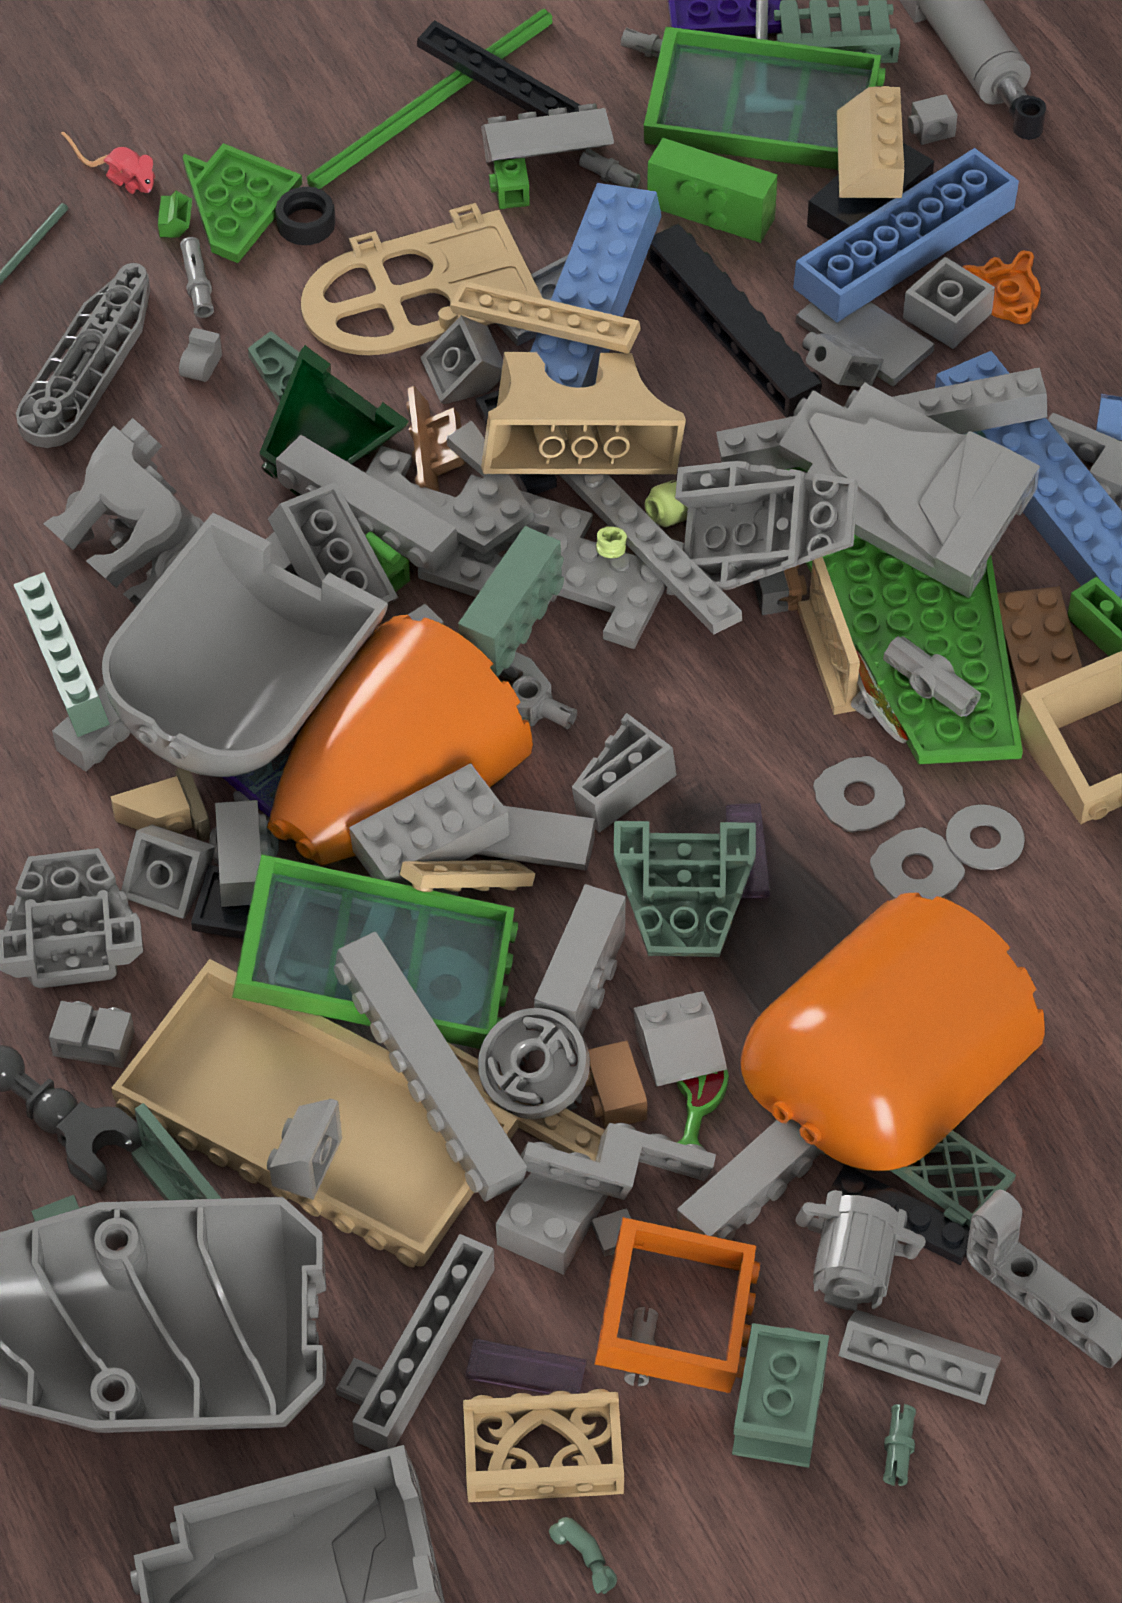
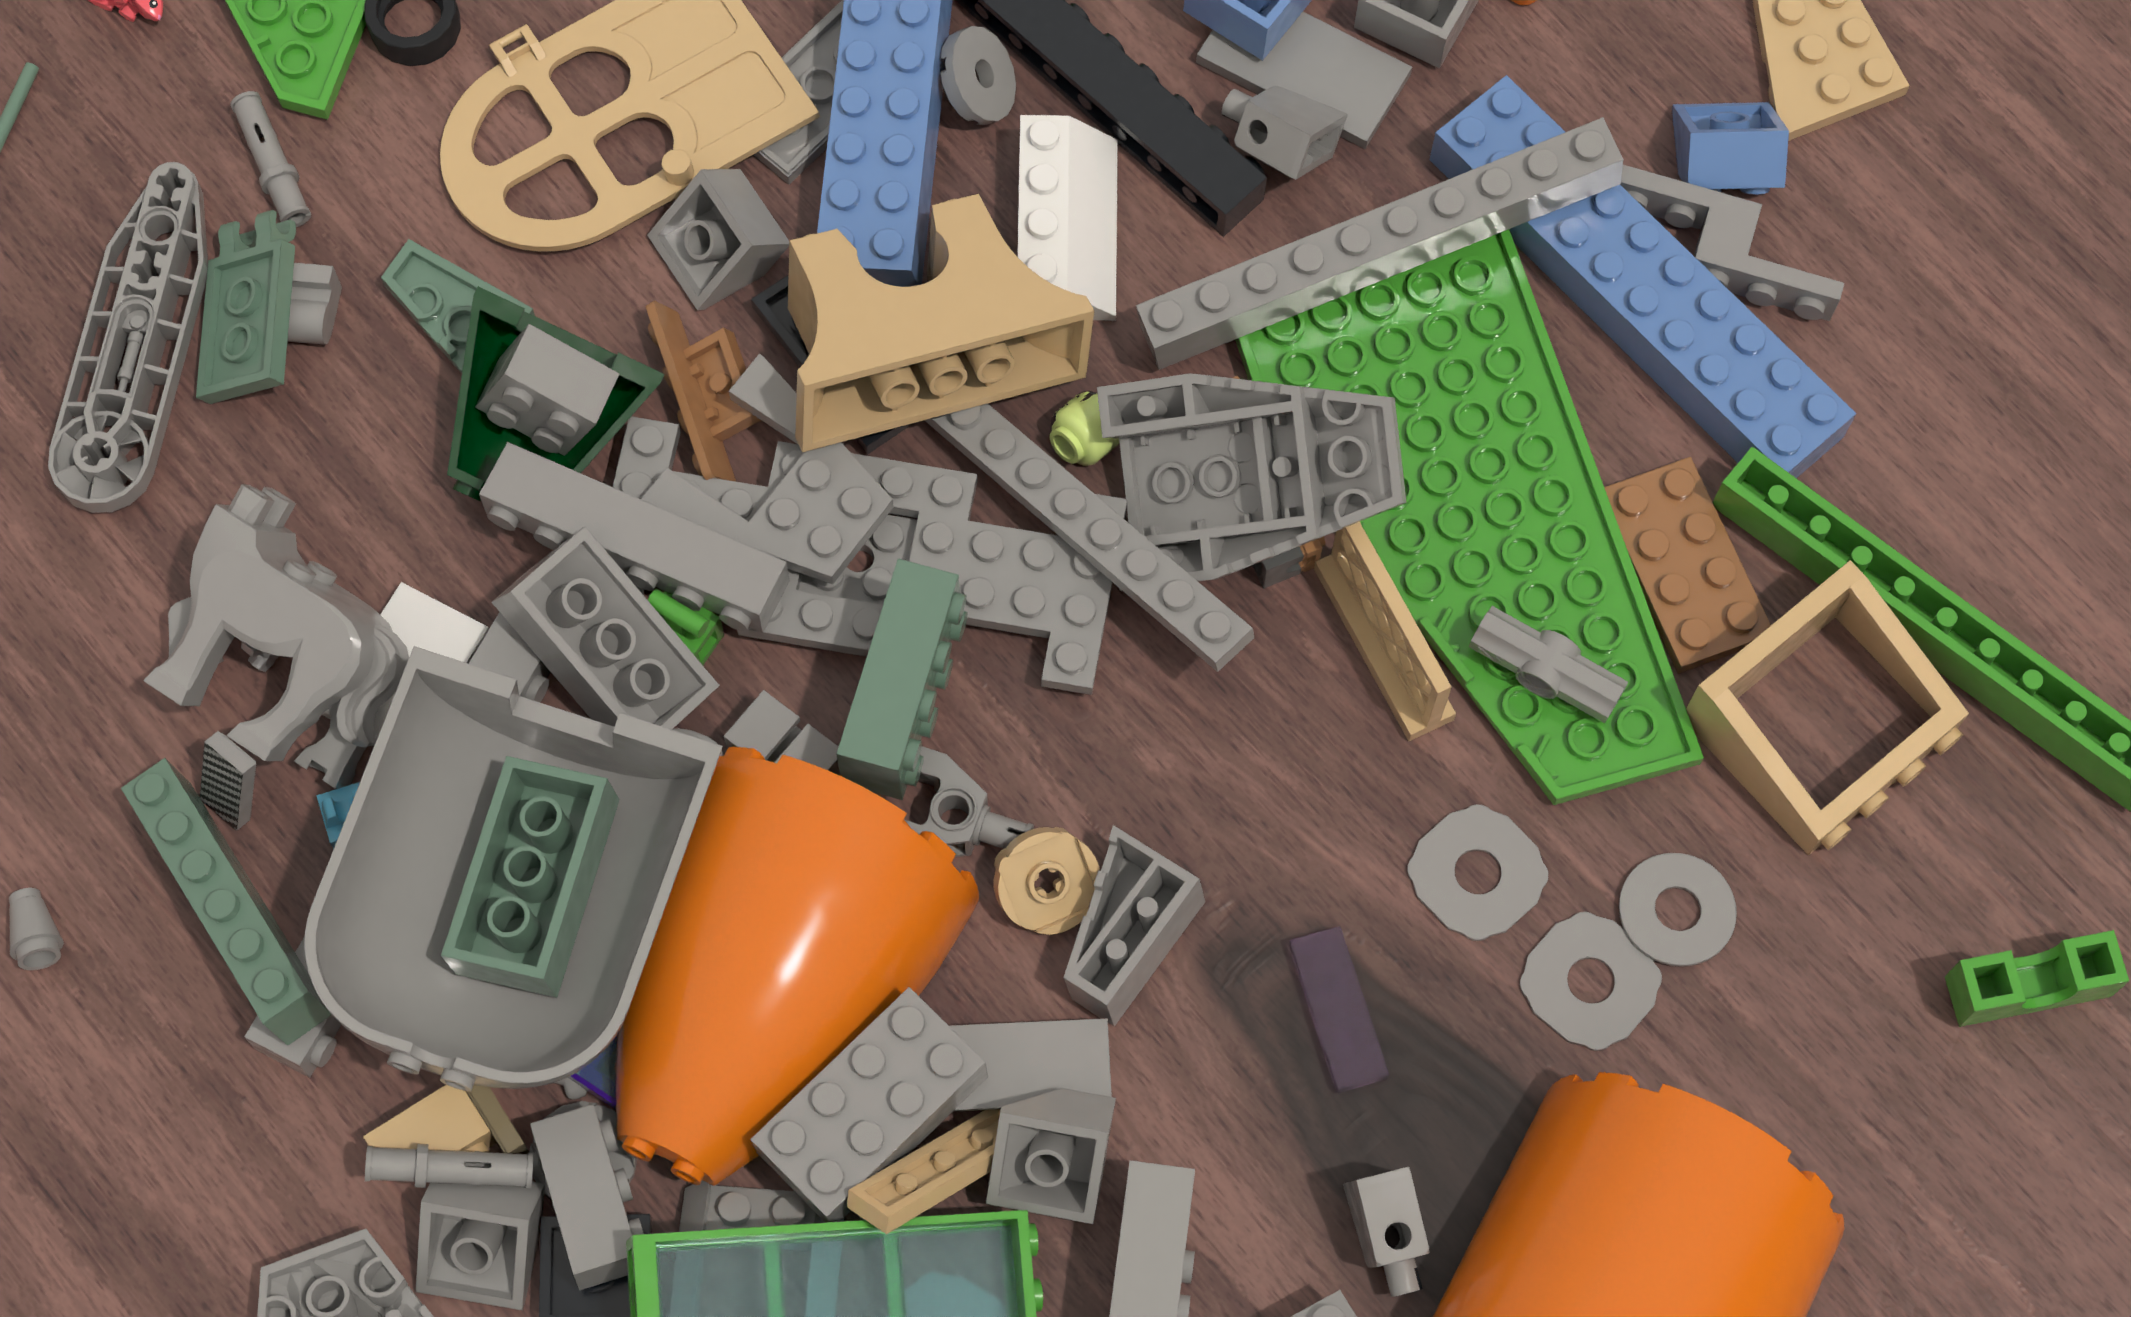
camera: 15 degrees left, 15 degrees up
(79, 593) = (227, 780): none -> light grey tile
(158, 819) = (448, 1167): none -> light grey pin
(159, 351) = (247, 310): none -> sand green tile
(174, 215) = (209, 53): bright green piece -> none
(252, 668) = (531, 876): none -> sand green brick
(333, 413) = (546, 391): none -> light grey brick
(539, 882) = (1052, 1154): none -> light grey slope
(545, 316) = (833, 155): tan plate -> none
(559, 730) = (1020, 866): none -> tan plate
(611, 542) = (1008, 521): yellowish green bush -> none
(653, 283) = (979, 50): none -> light grey tile
(684, 884) = (1266, 1102): sand green wedge -> none
(693, 380) = (1069, 207): none -> white slope
(745, 964) = (1375, 1206): none -> light grey torso
(877, 704) = (1473, 722): shield -> none
(921, 486) = (1482, 356): light grey panel -> none

